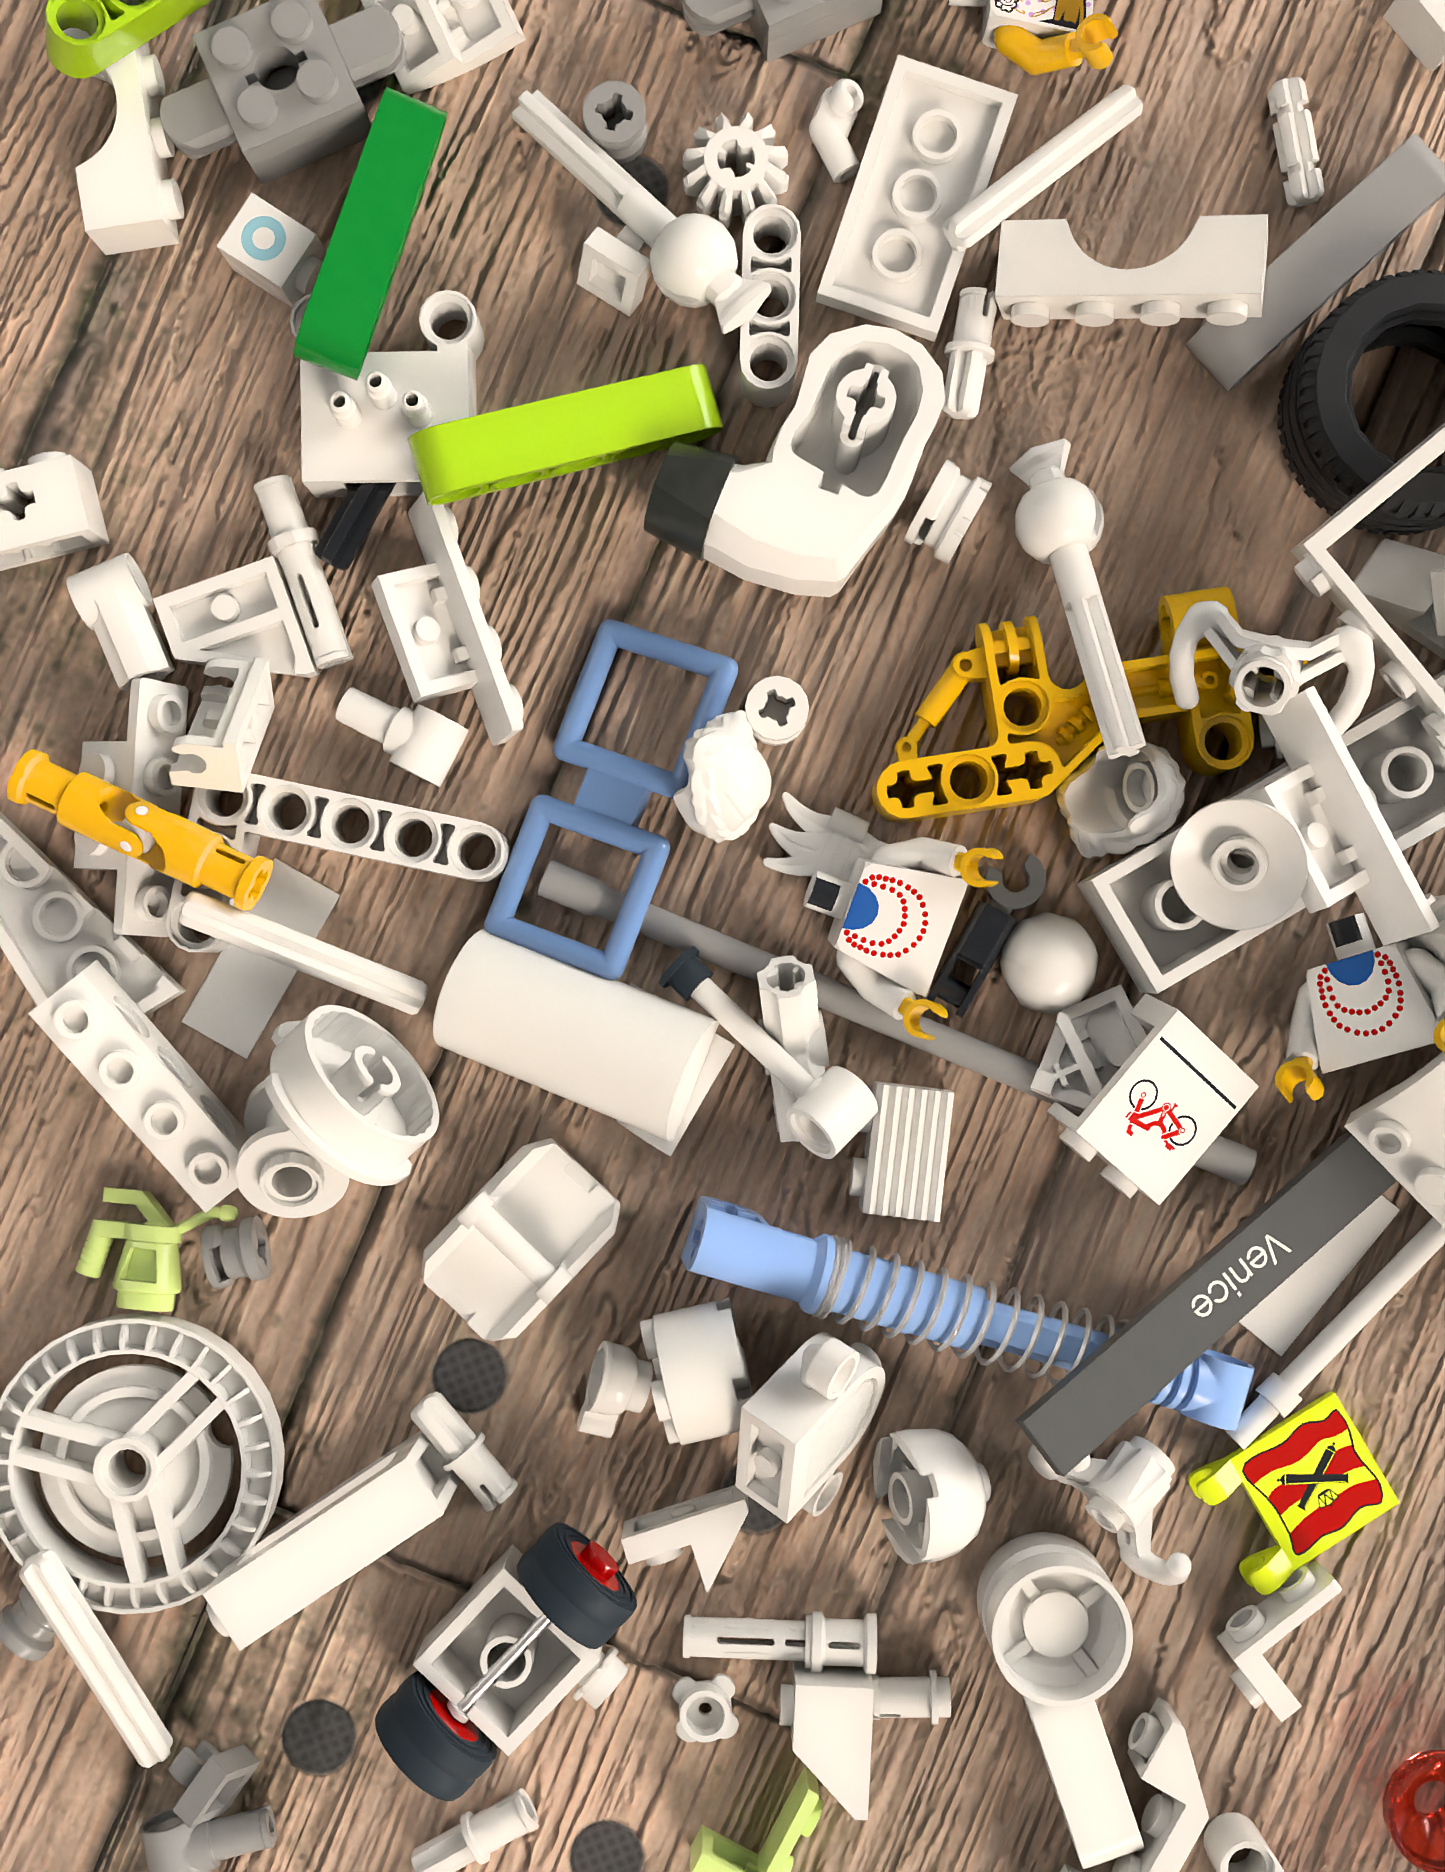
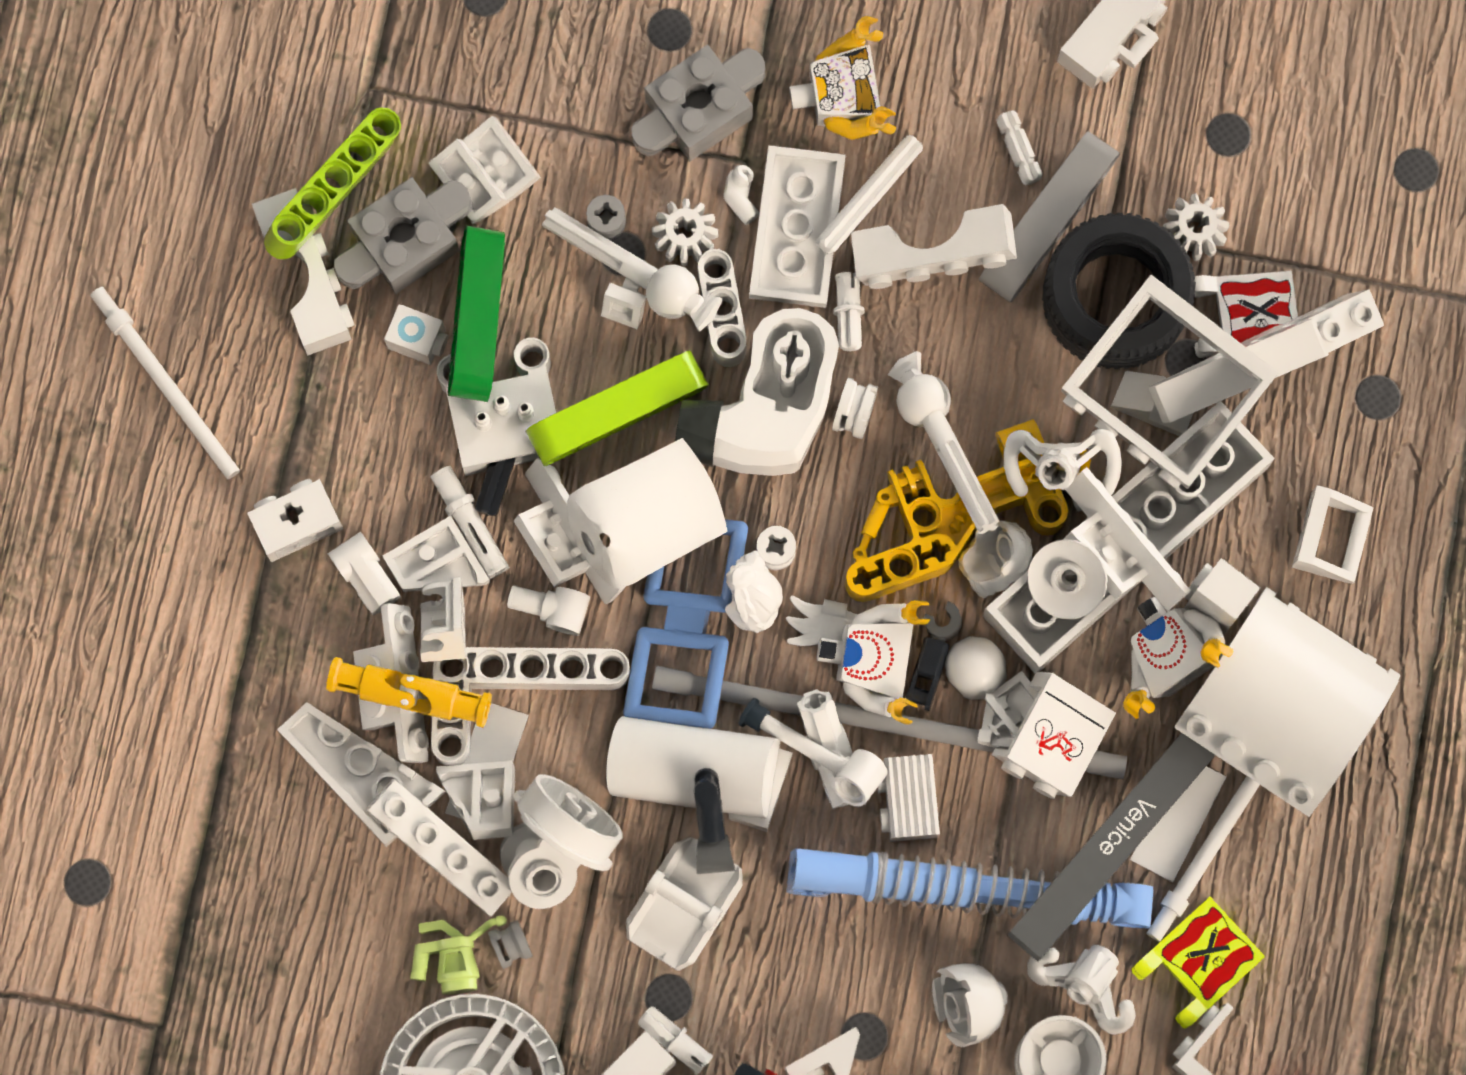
camera: 10 degrees left, 10 degrees down
(233, 1014) = (482, 796): none -> white wing
(302, 952) = (518, 750): white axle -> none
(580, 615) = (650, 513): none -> white piece
(580, 1165) = (713, 845): none -> black piece
(614, 1385) = (760, 979): white piece -> none
(697, 1371) = (812, 954): white brick -> none
(807, 1425) = (884, 970): white piece -> none

